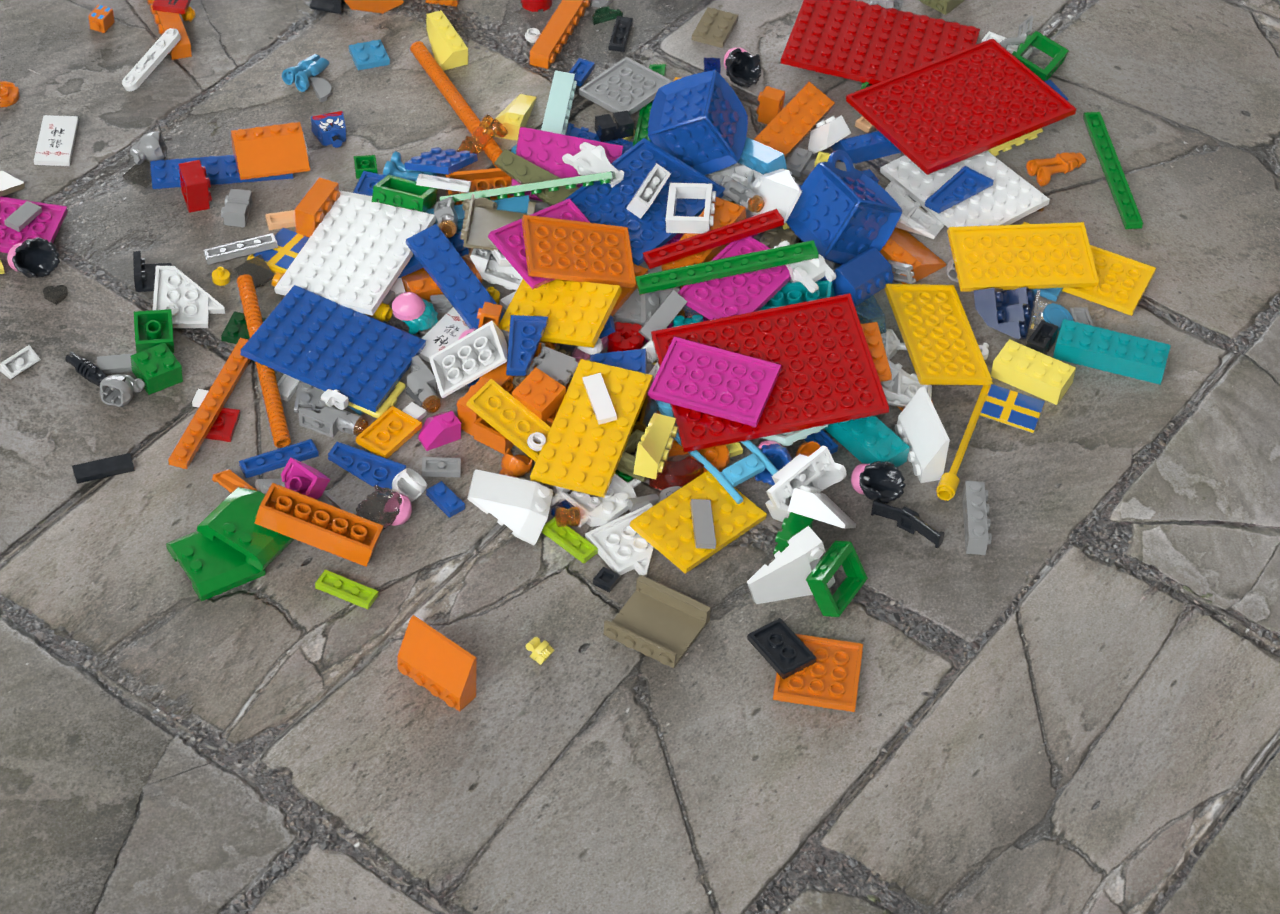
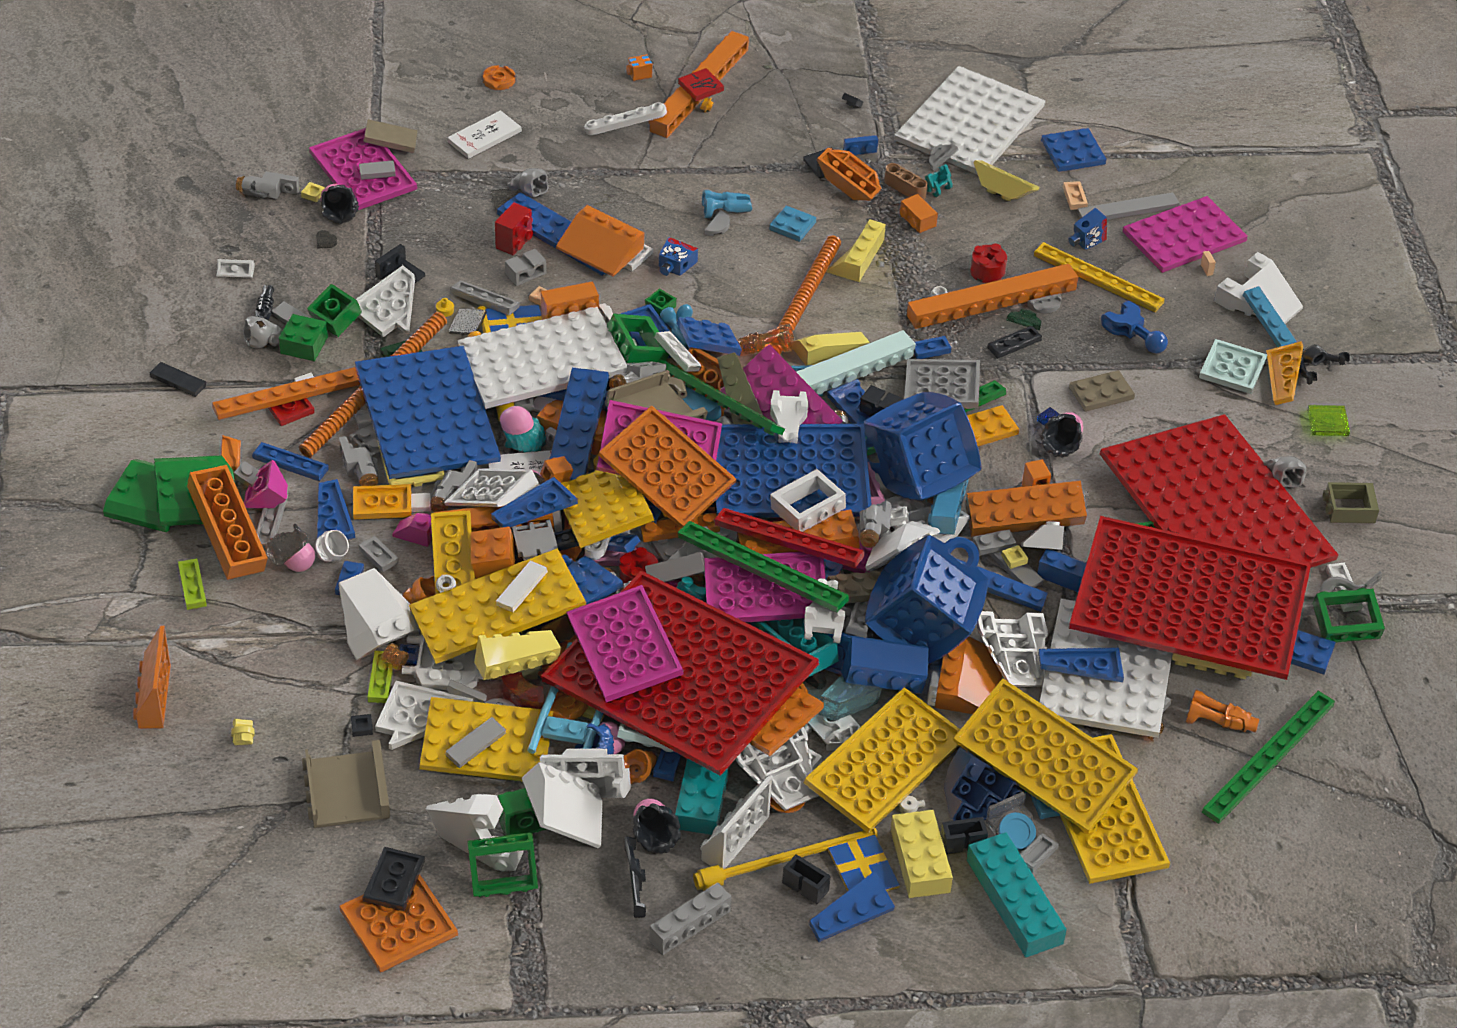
camera: 50 degrees right, 0 degrees up
(335, 398) = (370, 445): white piece -> none
(648, 191) = (792, 463): white brick -> none
(1001, 437) = (808, 878): none -> black piece
(1045, 433) = (855, 907): none -> blue wing

